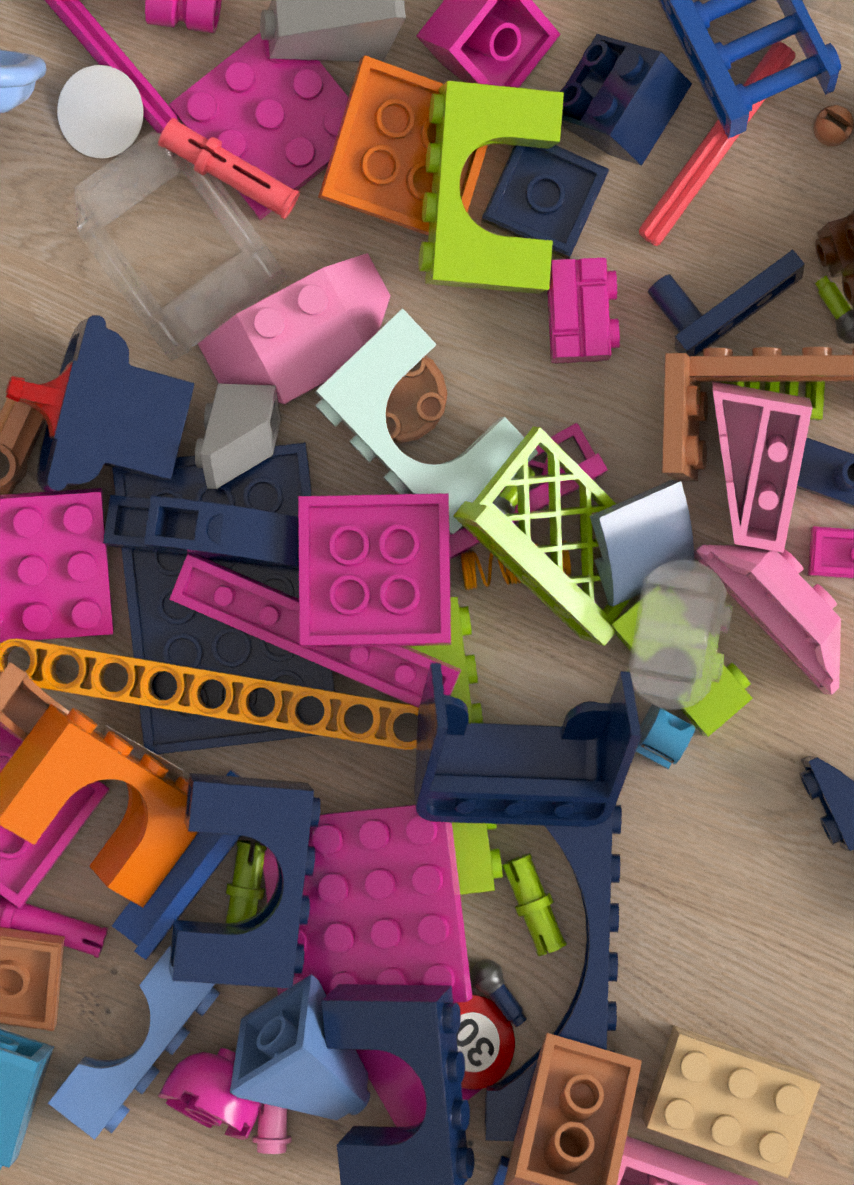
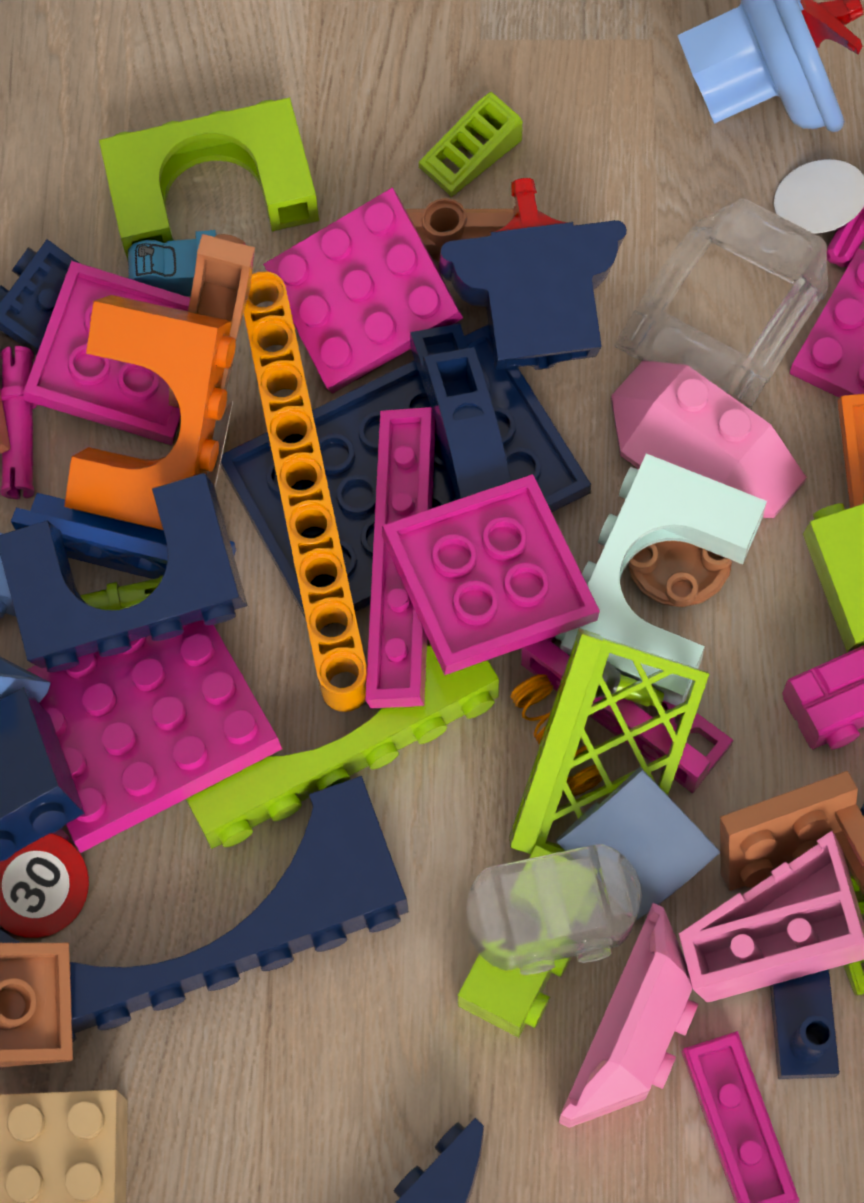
camera: 70 degrees right, 20 degrees down
(213, 159) = (825, 293): coral pin -> none
(239, 431) = (572, 413): light grey slope -> none
(488, 978) = (109, 877): piece -> none
(523, 771) = (336, 787): dark blue windscreen -> none
(534, 904) = (206, 893): lime pin -> none
(664, 737) = (438, 950): dark azure leg -> none

